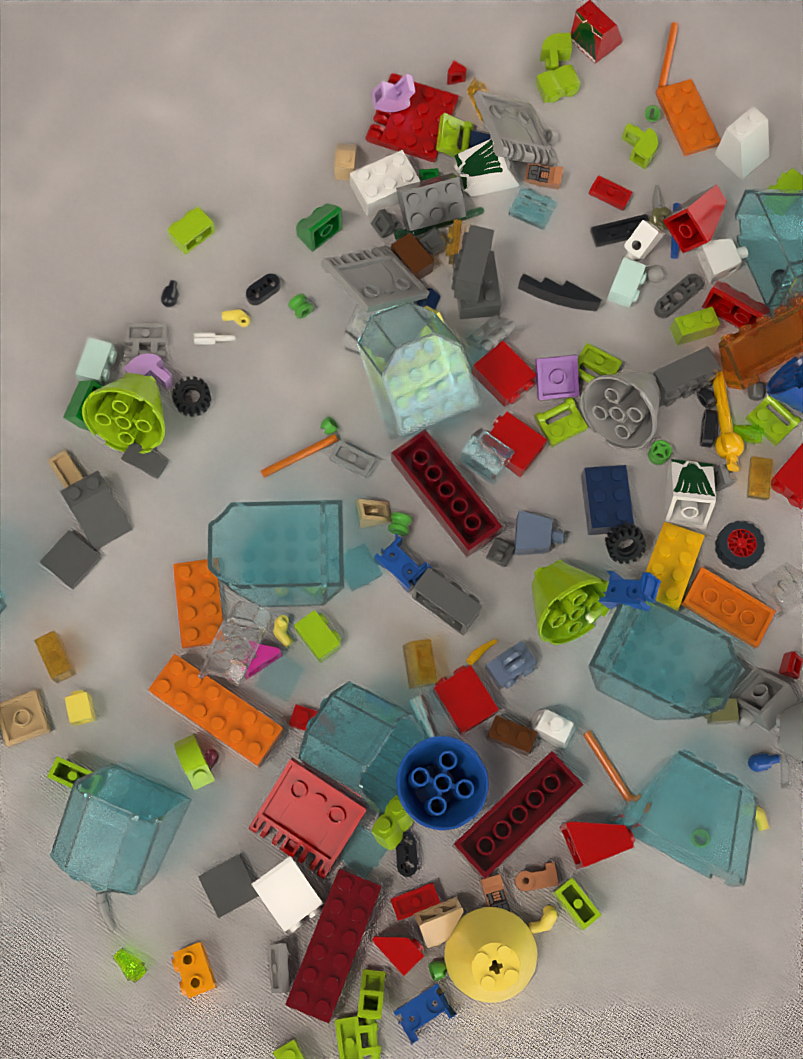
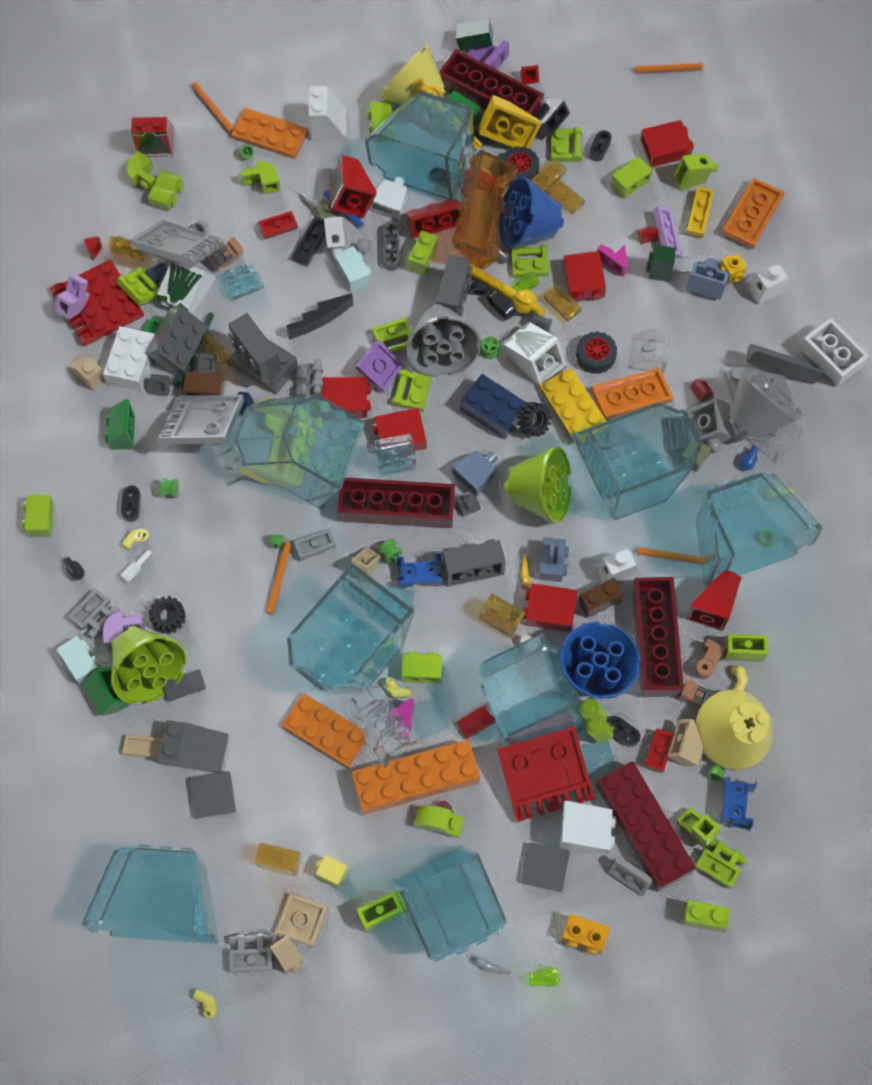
camera: 45 degrees left, 5 degrees down
(400, 951) = (686, 785): red slope -> none
(631, 591) = (577, 435): blue piece -> none

